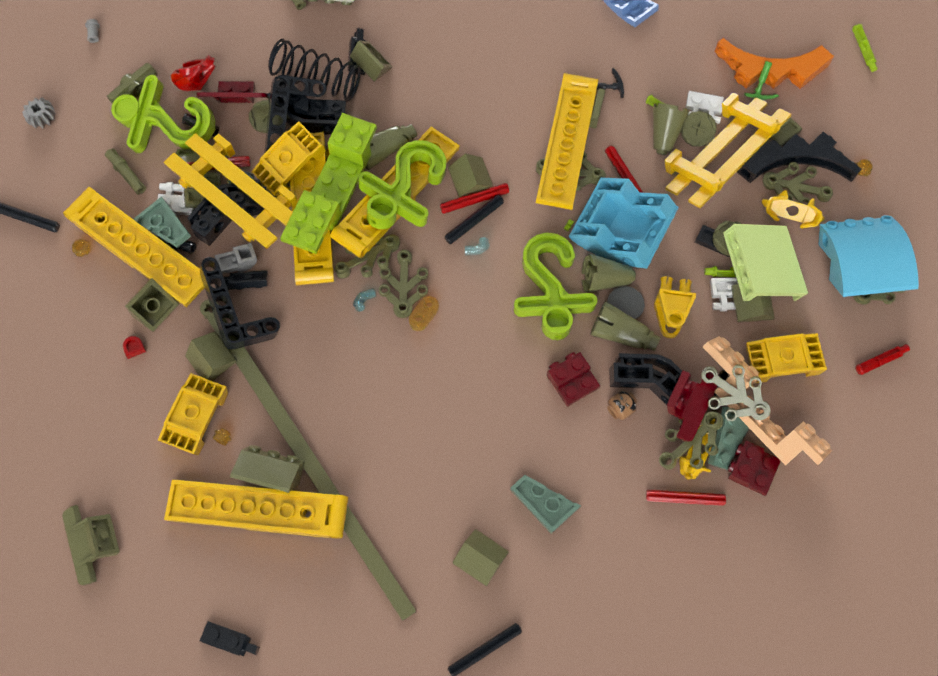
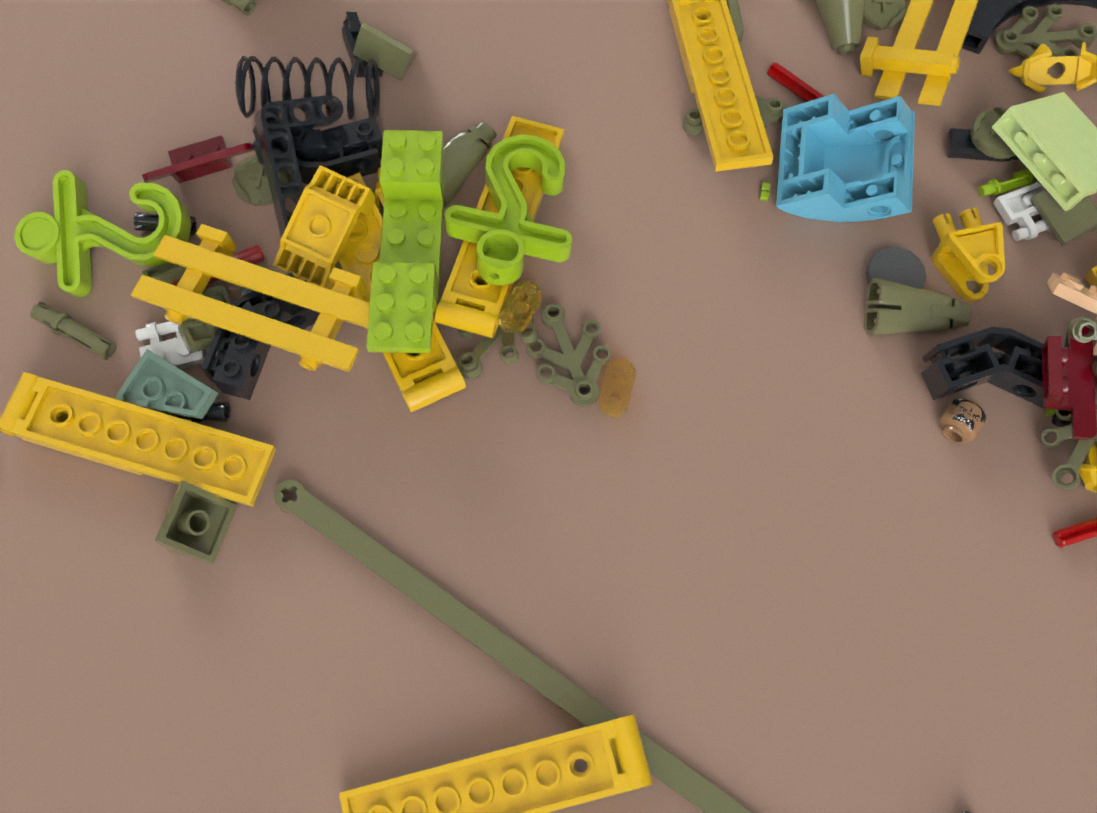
camera: 20 degrees left, 0 degrees up
(79, 243) = (38, 469): clear yellow plate -> none
(132, 83) = (33, 195): olive piece -> none
(133, 346) = (190, 599): red tile -> none
(190, 76) = (120, 156): red helmet -> none
(192, 413) = (330, 673): yellow plate -> none
(209, 356) = (320, 571): olive slope -> none
(222, 436) = (391, 690): clear yellow plate -> none
(228, 311) = (325, 488): black beam -> none
(240, 259) = (305, 405): light grey brick -> none
(246, 280) = (324, 434): black hinge -> none
(268, 468) = (489, 718): olive slope -> none
(362, 297) = (516, 397): clear light blue arm -> none
(381, 246) = (520, 307): none -> clear yellow plate
(469, 175) = (597, 168): olive slope -> none
(474, 198) = (616, 197): red axle -> none
(474, 219) = (629, 227): black axle -> none
(479, 249) = (649, 271): clear light blue arm -> none
(480, 557) = (867, 728): olive slope -> none
(543, 503) = (920, 608): sand green wing -> none
(556, 304) = (800, 306): lime piece -> none
(572, 378) = (874, 406): dark red plate -> none
(605, 273) = (850, 240): olive cone -> none

